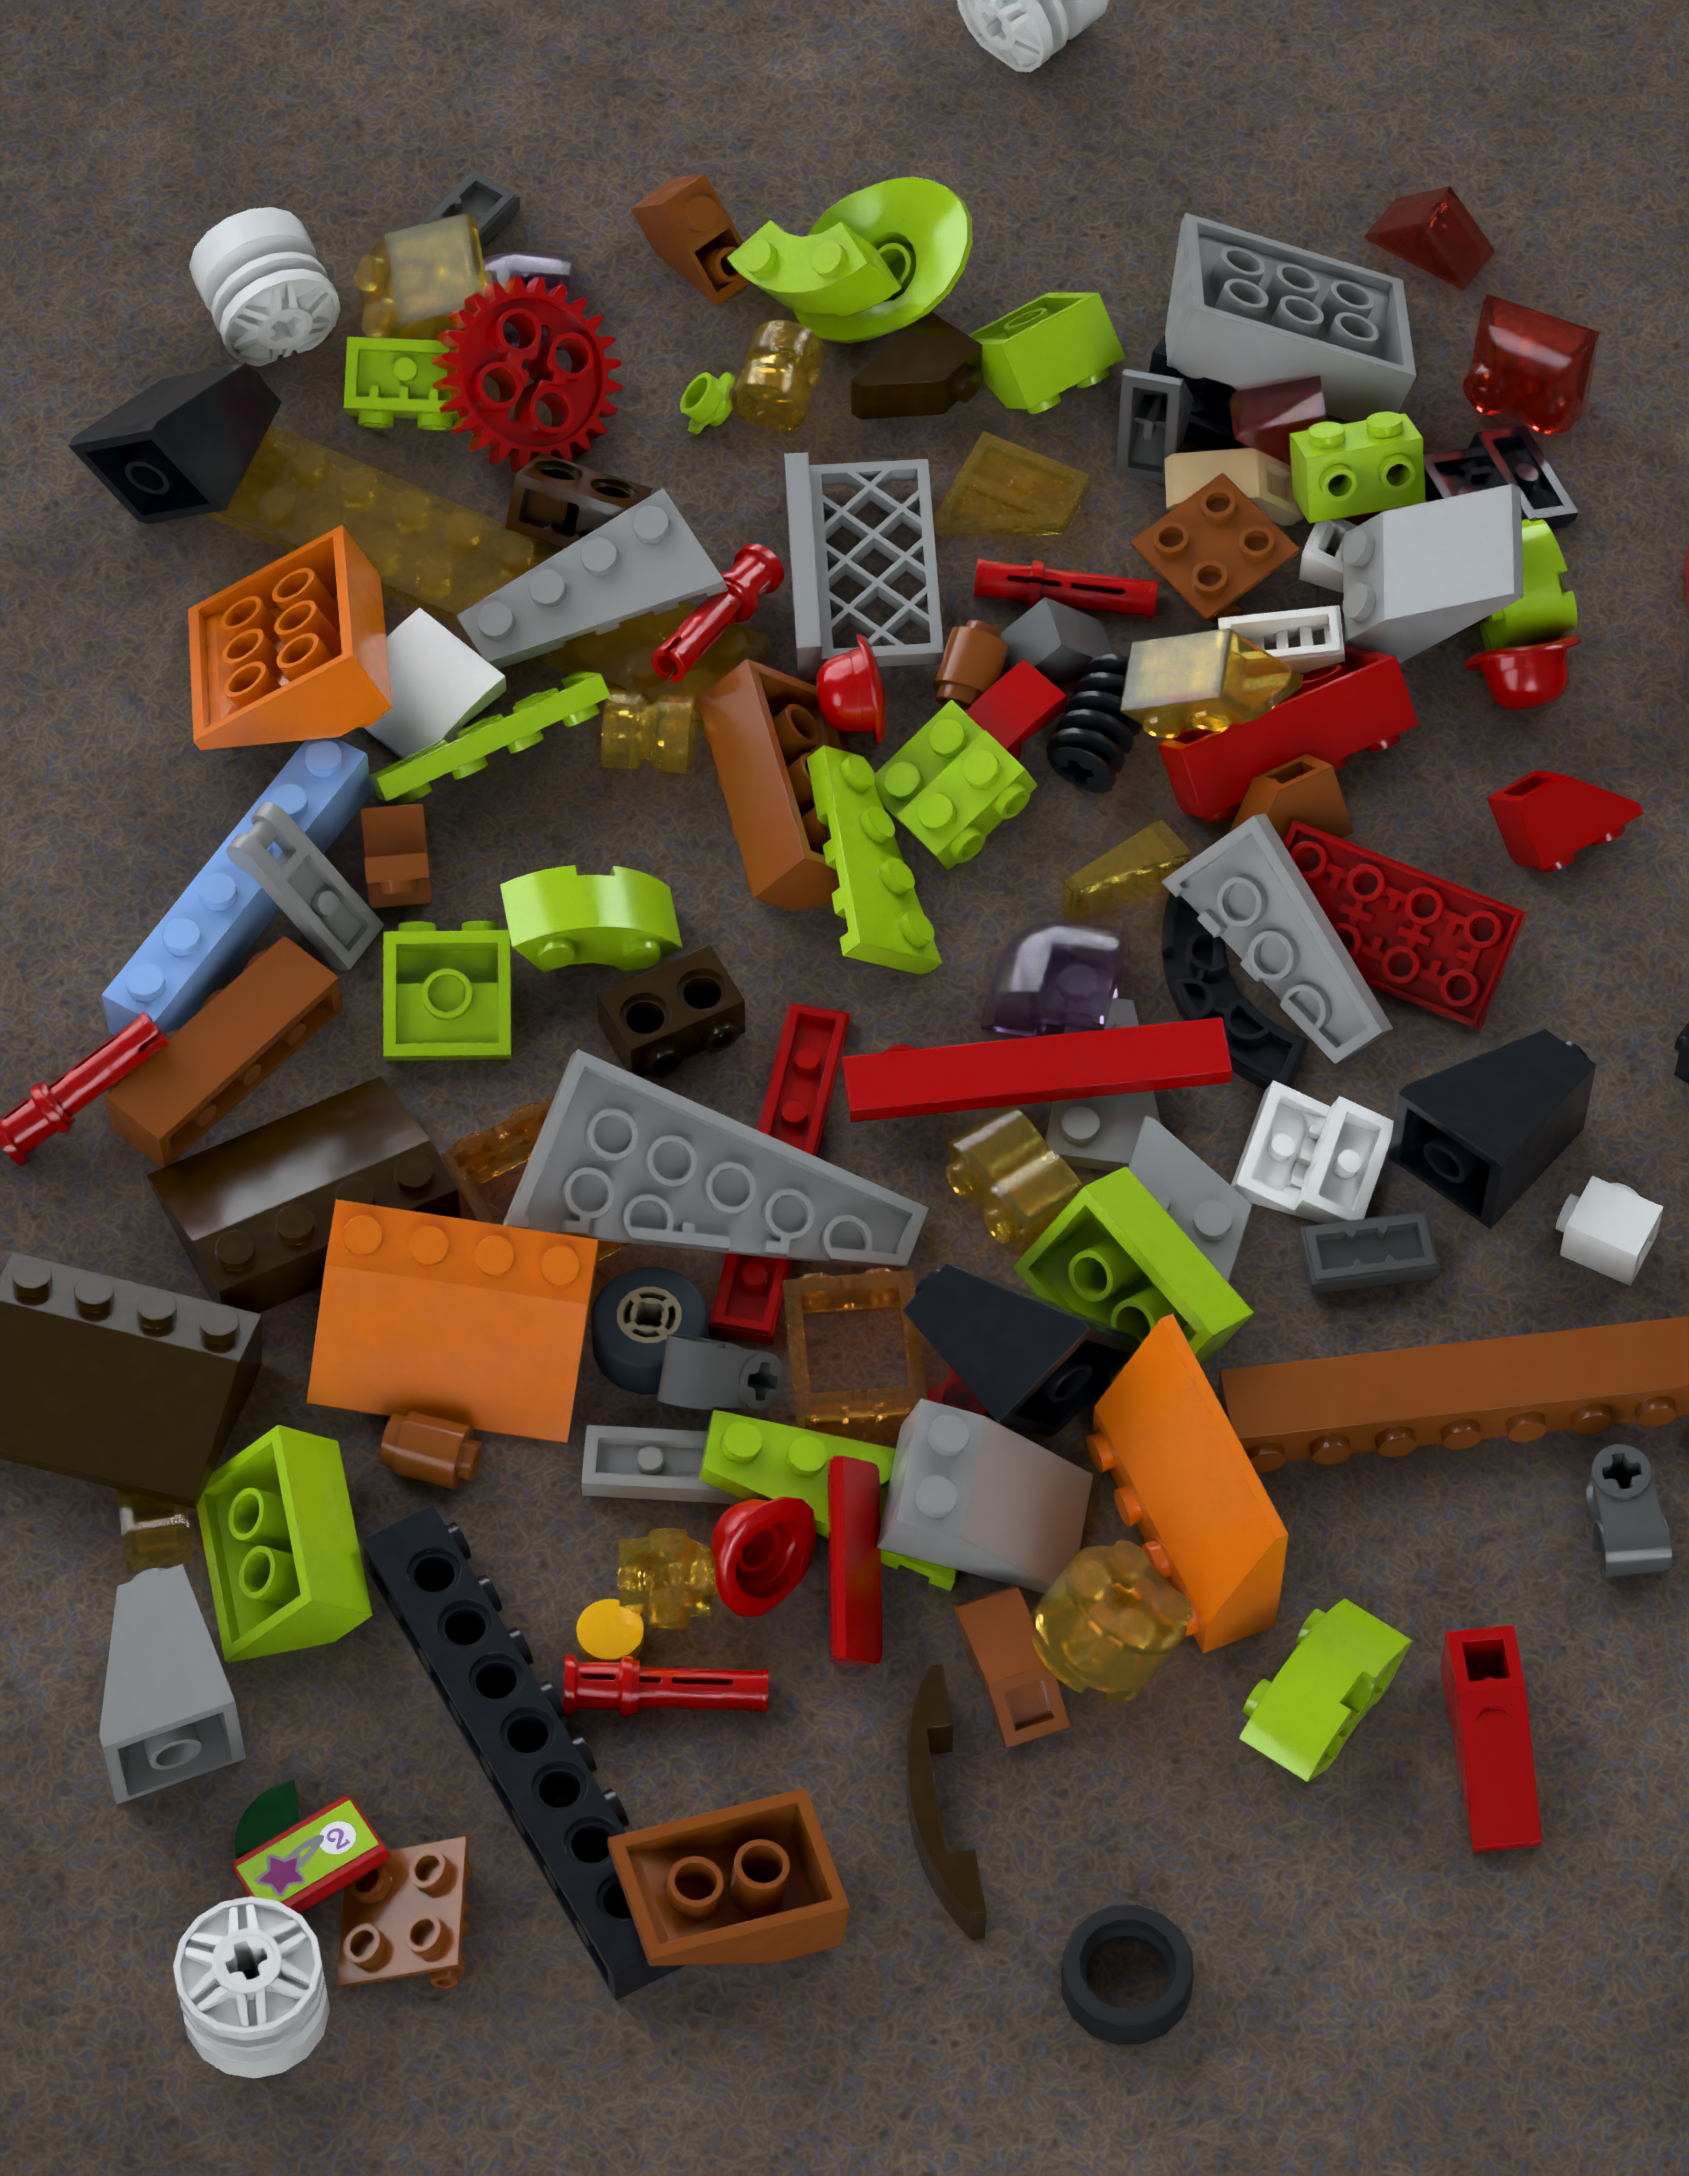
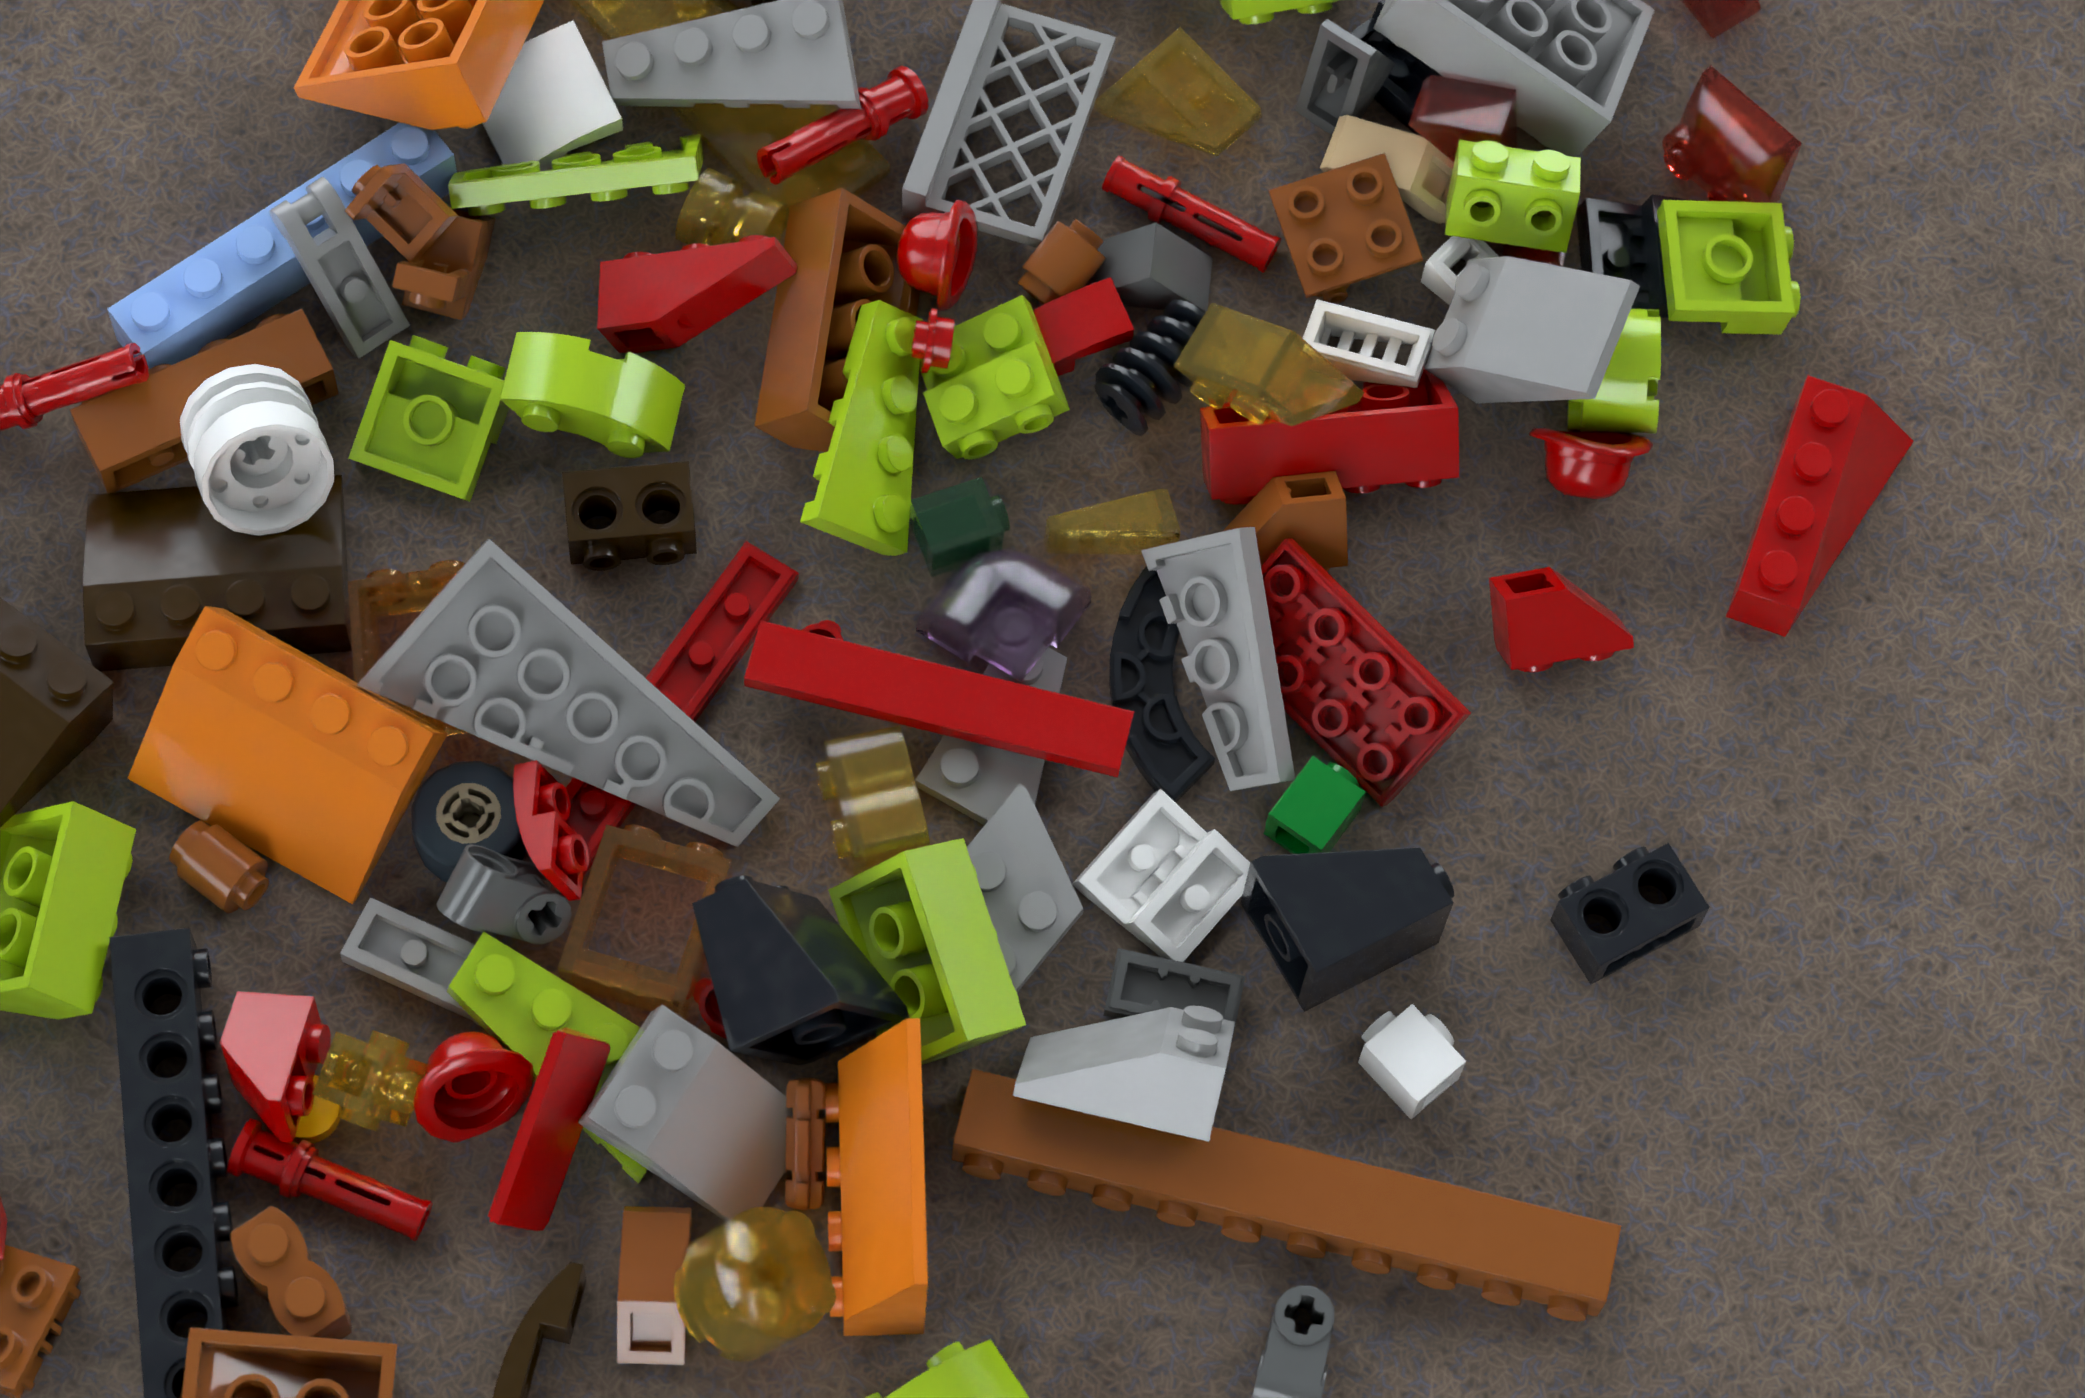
camera: 15 degrees right, 10 degrees up
(304, 1066) = (256, 450): none -> white wheel
(345, 811) = (400, 208): none -> dark orange bracket
(562, 1590) = (274, 1054): none -> slope
(636, 803) = (676, 295): none -> red slope
(662, 1777) = (285, 1276): none -> dark orange brick
(748, 1312) = (541, 815): none -> red slope
(890, 764) = (933, 341): none -> red plate
(979, 920) = (957, 524): none -> clear green brick
(1092, 1487) = (805, 1143): none -> dark orange axle
(1376, 1312) = (1136, 1069): none -> light grey slope
(1421, 1043) = (1315, 809): none -> green brick
(1574, 466) = (1728, 265): none -> lime plate

